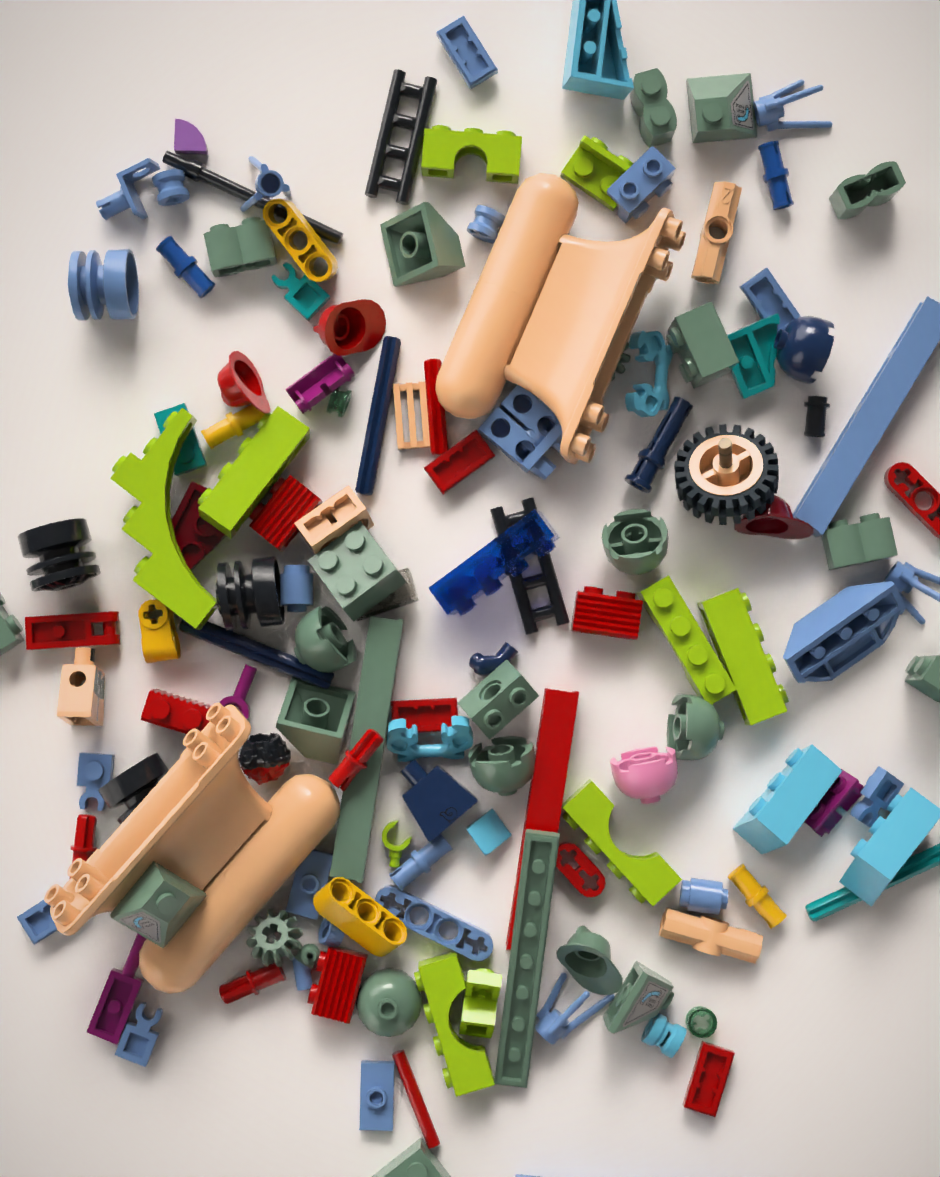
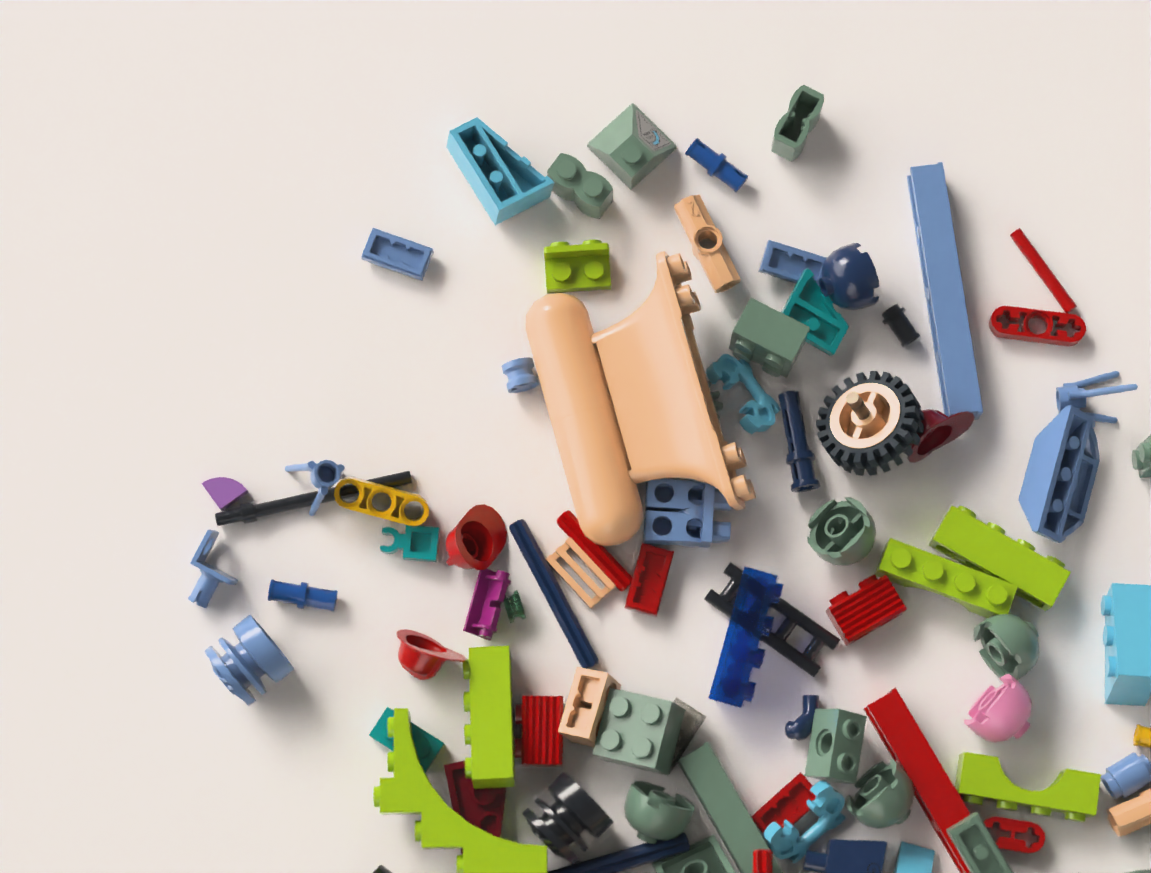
camera: 30 degrees left, 10 degrees down
(170, 187) = (241, 540): medium blue wheel -> none
(232, 426) = (442, 693): yellow pin -> none
(240, 247) = (335, 545): sand green brick -> none
(296, 588) = (599, 784): medium blue brick -> none
(385, 149) = (414, 368): black bar -> none
(421, 246) = (481, 432): sand green slope -> none
(445, 147) = (485, 312): lime arch -> none
(640, 183) = (617, 249): medium blue bracket -> none
(770, 108) = (671, 119): medium blue plant -> none
(858, 542) = (1015, 396): sand green brick -> none

